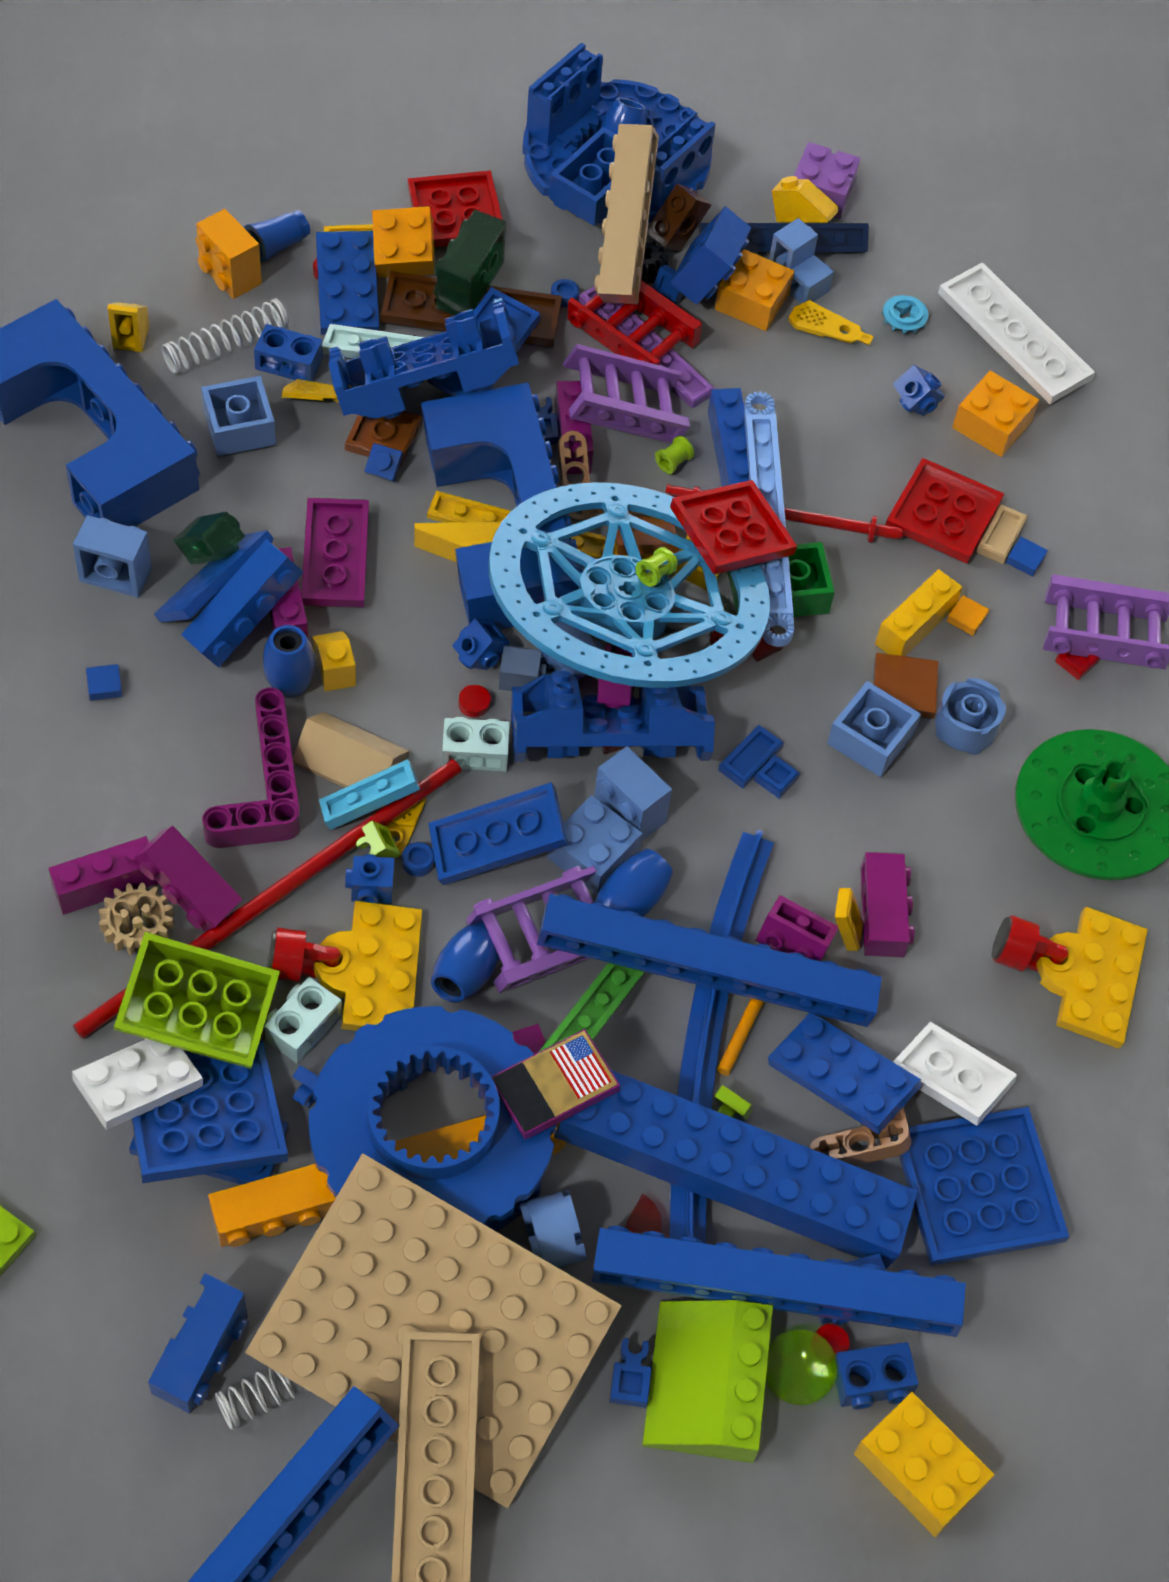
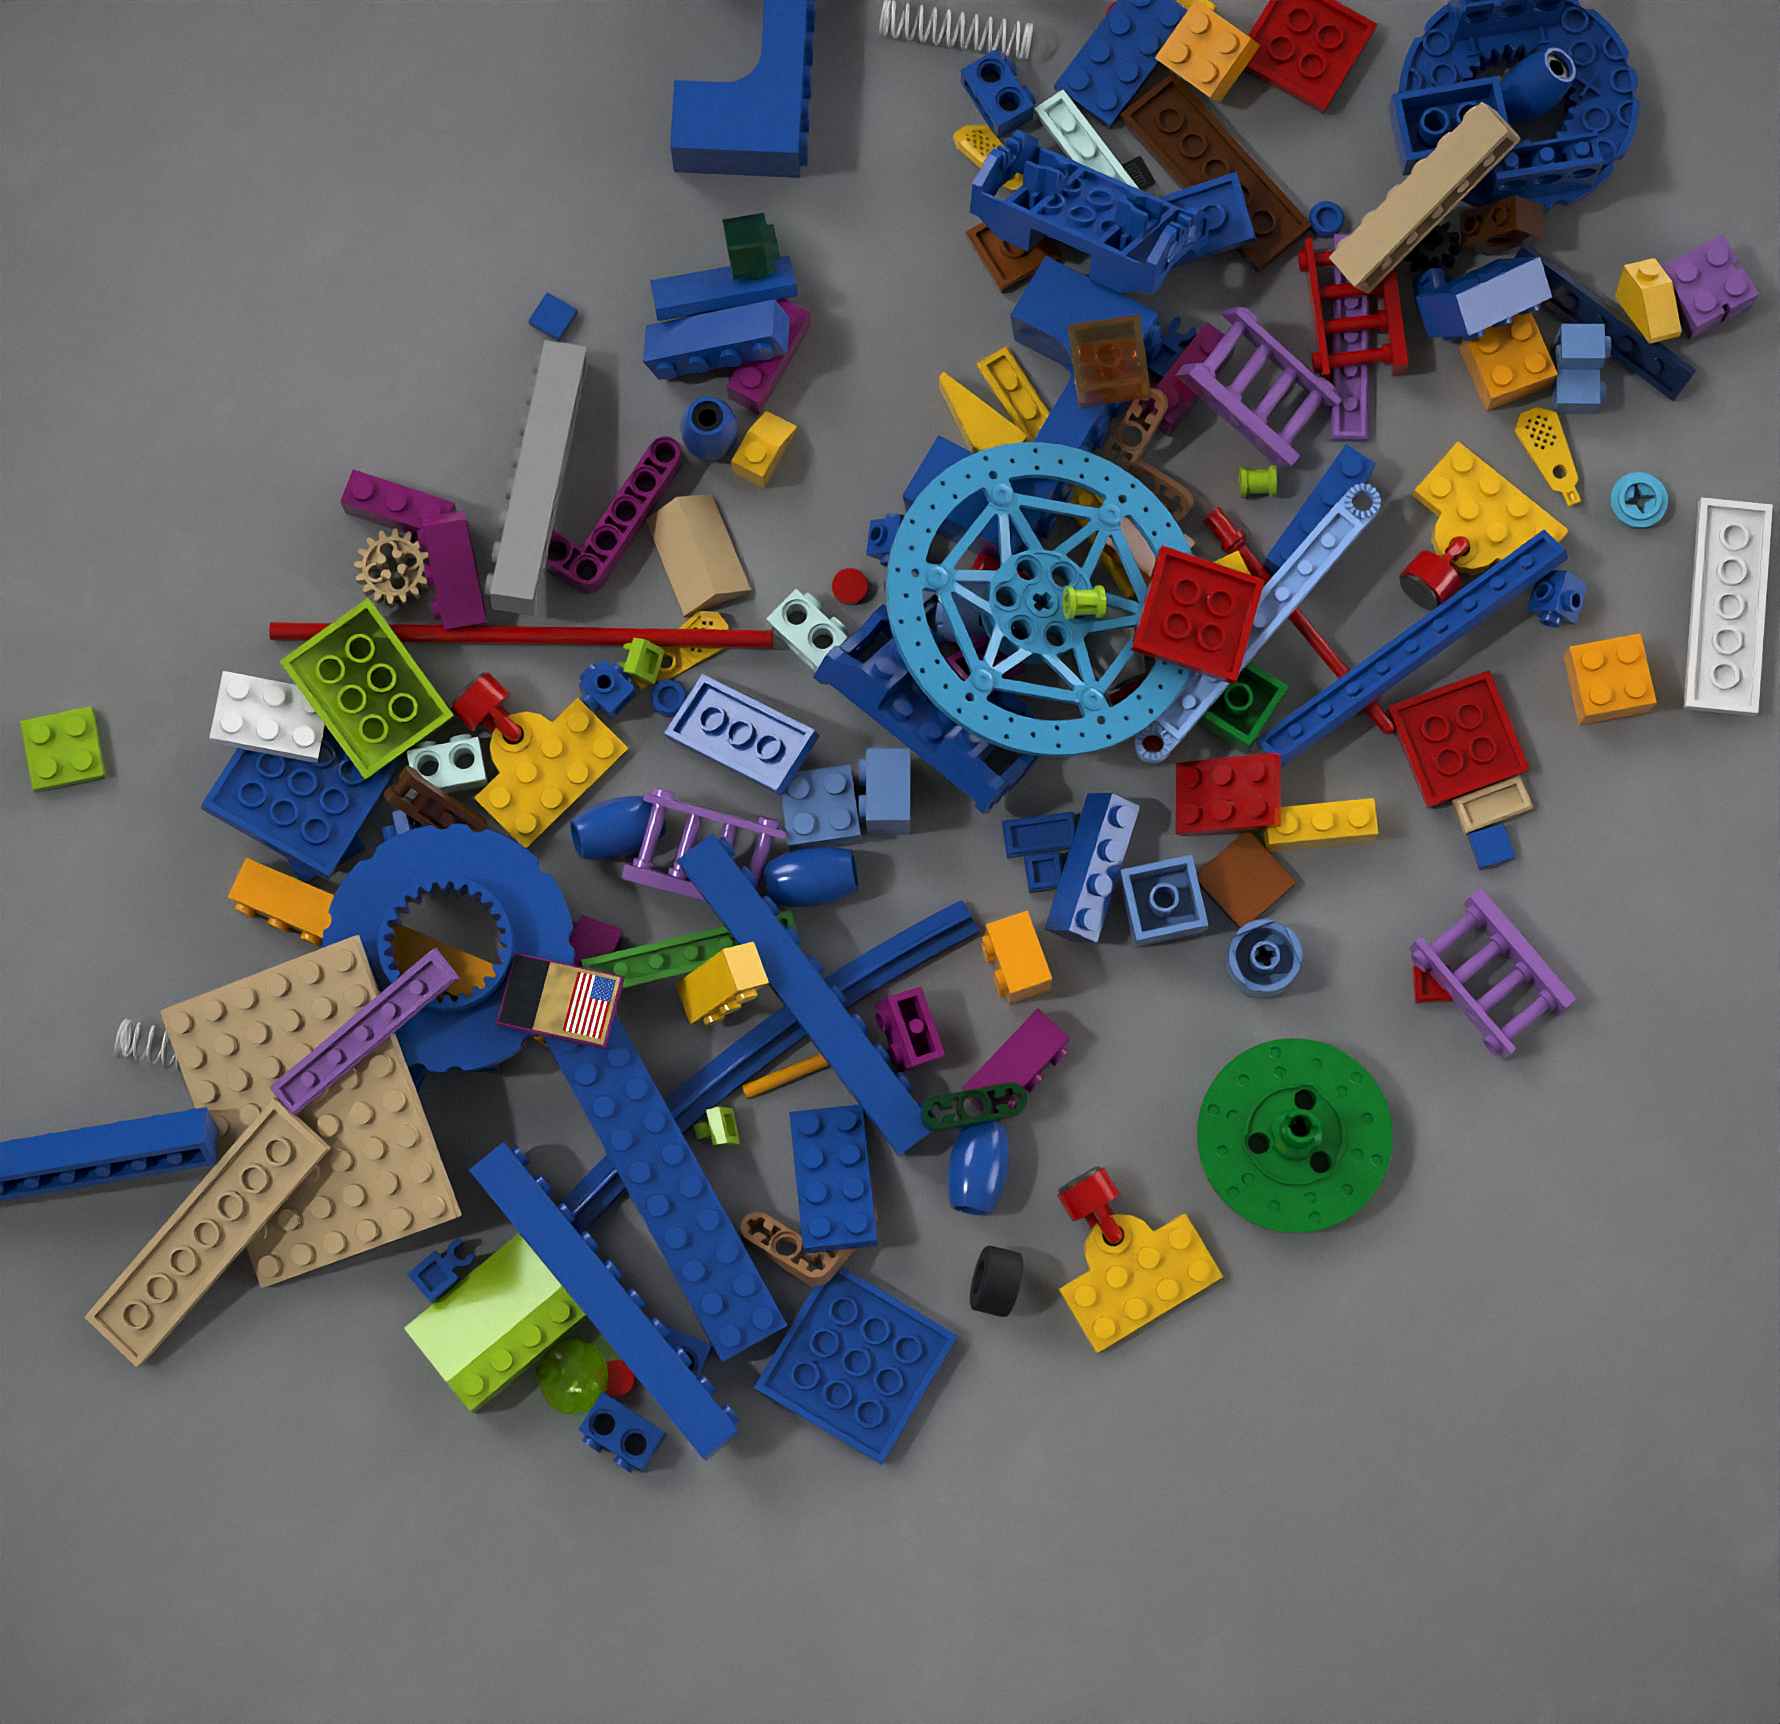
camera: 50 degrees right, 20 degrees up
(112, 556) = (652, 199): medium blue brick -> none
(197, 777) = (538, 478): none -> light grey brick
(200, 1345) = (144, 973): blue wedge -> none
(238, 415) = (888, 131): medium blue brick -> none
(316, 1045) = (431, 804): none -> reddish brown plate
(335, 552) = (857, 341): magenta plate -> none
(369, 794) = (672, 609): medium azure plate -> none
(384, 462) = (982, 280): blue plate -> none
(433, 1218) = (364, 1032): none -> medium lavender tile
(470, 263) = (1237, 131): clear green brick -> none
(530, 418) = (1109, 360): none -> clear orange brick
(554, 1229) = (479, 1110): medium blue brick -> none
(644, 1217) = (567, 1159): clear red tile -> none
(648, 997) = (722, 984): none -> yellow brick
(809, 743) = (1092, 867): none -> blue brick
(821, 831) = (1017, 958): none -> light orange brick
(831, 392) = (1477, 525): none -> yellow plate
(848, 635) = (1228, 794): none -> red plate
(849, 919) = (962, 1055): yellow tile -> none
(869, 475) = (1413, 648): none -> blue plate
(892, 954) = (948, 1121): none -> dark green beam
(923, 1464) = (591, 1529): yellow brick -> none
(929, 985) = (978, 1168): none -> blue piece
(956, 1073) = (922, 1256): white plate -> none
(967, 615) = (1373, 859): light orange tile -> none
(1018, 1045) = (996, 1281): none -> black tyre

